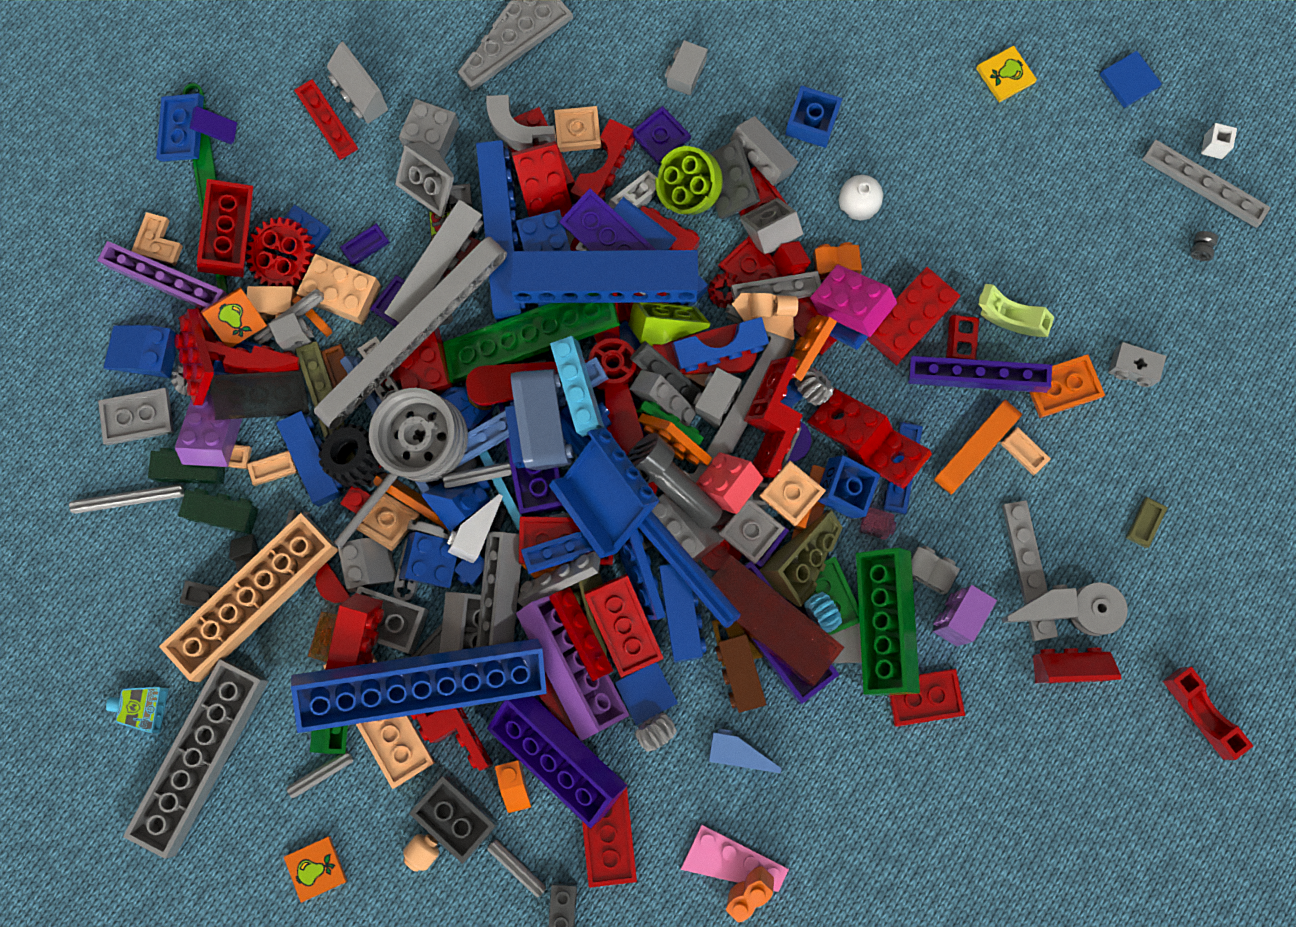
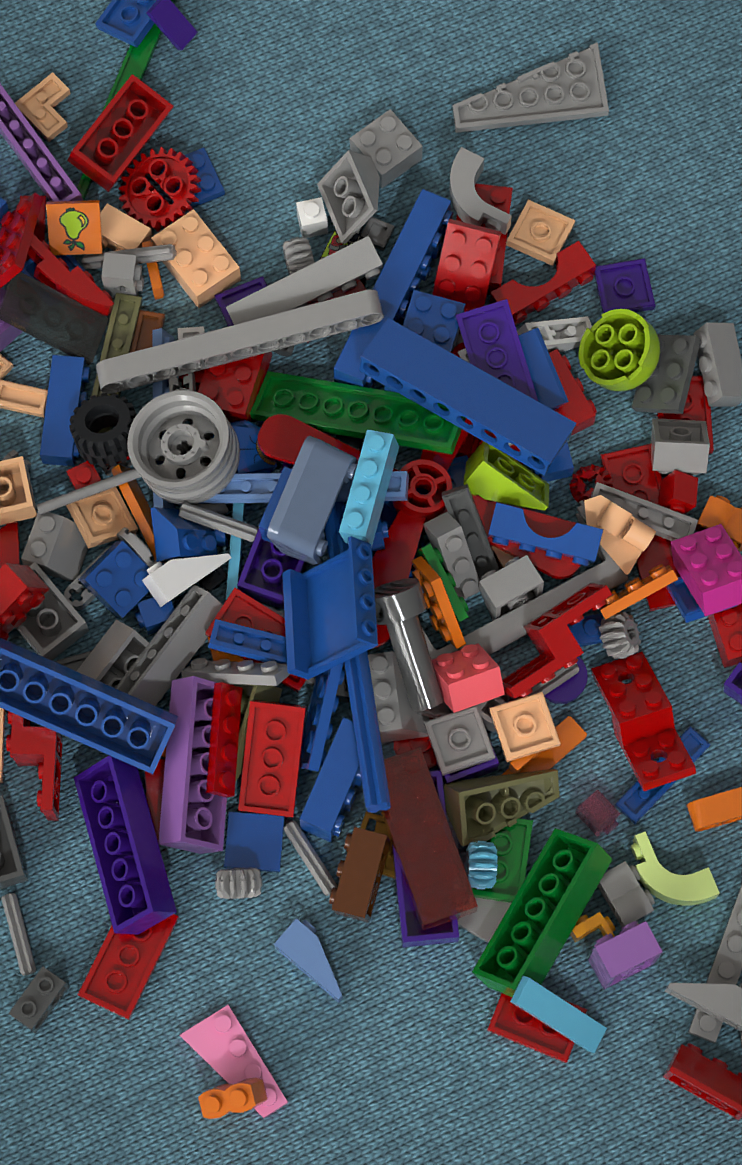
camera: 30 degrees right, 5 degrees down
(326, 119) = (288, 79): red plate -> none
(355, 84) = (339, 61): light grey slope -> none
(364, 244) = (249, 228): dark purple tile -> none
(406, 211) = (312, 217): none -> white brick
(413, 244) = (297, 254): none -> light grey gear
(513, 786) = (65, 850): orange slope -> none
(686, 68) = (694, 233): light grey brick -> none
(694, 680) = (310, 857): none -> light grey axle
(848, 486) = (588, 757): blue brick -> none
(923, 603) = (588, 925): none -> light orange bracket
(943, 687) = (558, 1014): none -> medium azure tile
(955, 546) = (667, 886): none -> yellowish green arch

